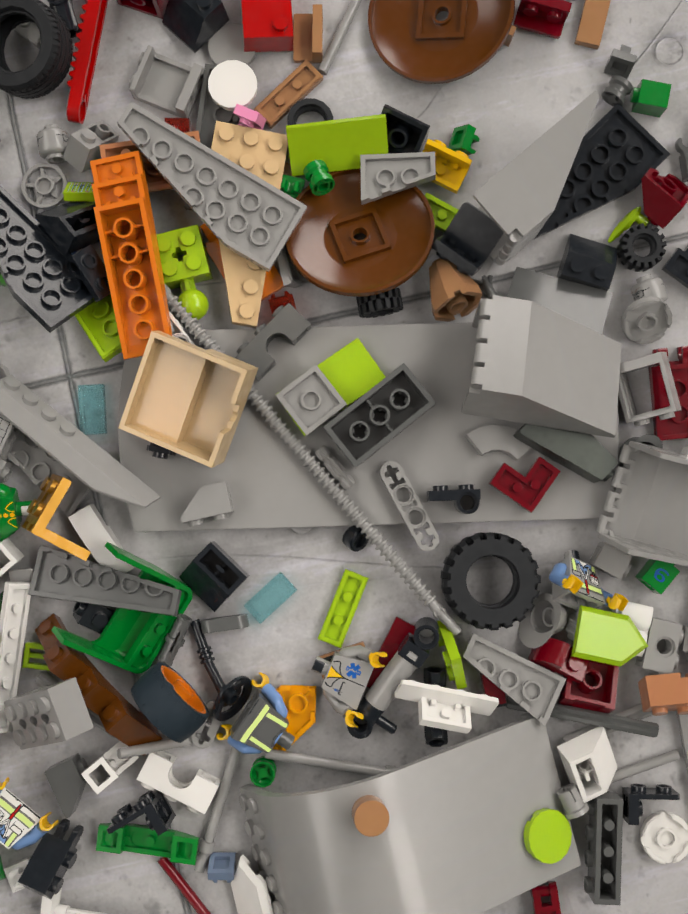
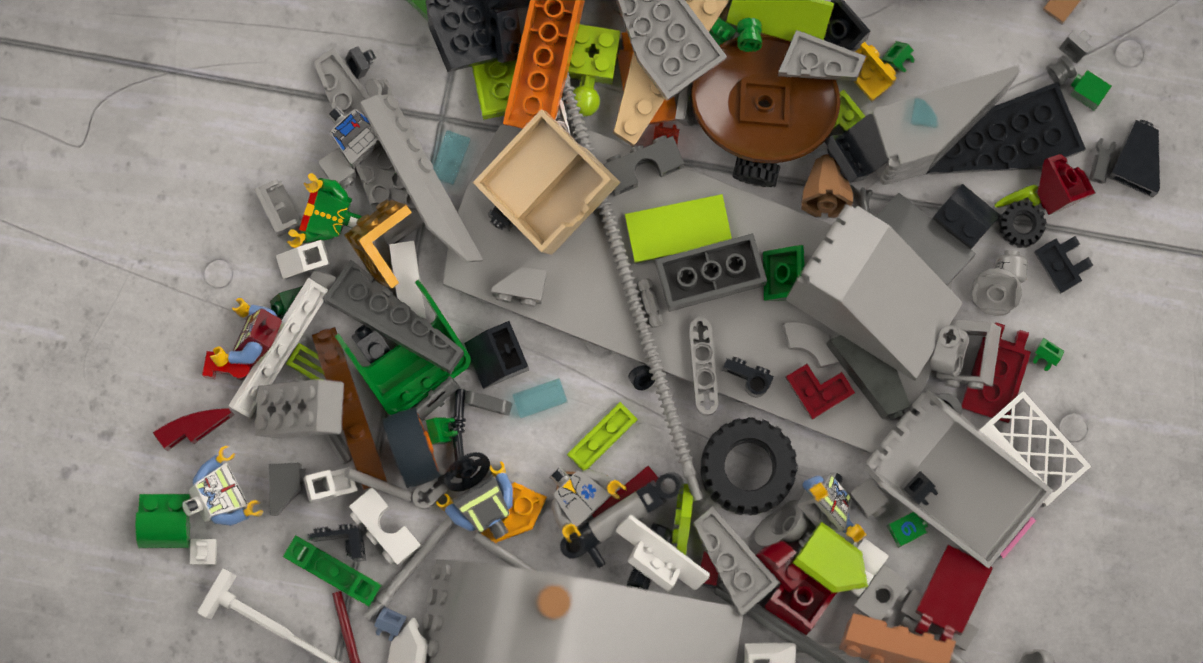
camera: 25 degrees right, 5 degrees down
(51, 860) = (240, 546): black hinge -> none
(191, 669) = (439, 430): none -> green tile
(265, 775) = (465, 551): green wheel -> none
(311, 400) = (655, 232): light grey plate -> none
(446, 385) = (782, 270): none -> green slope
(525, 177) = (923, 114): none -> clear light blue tile
(632, 398) = (950, 353): none -> light grey piece
(656, 533) = (919, 488): none -> black tile

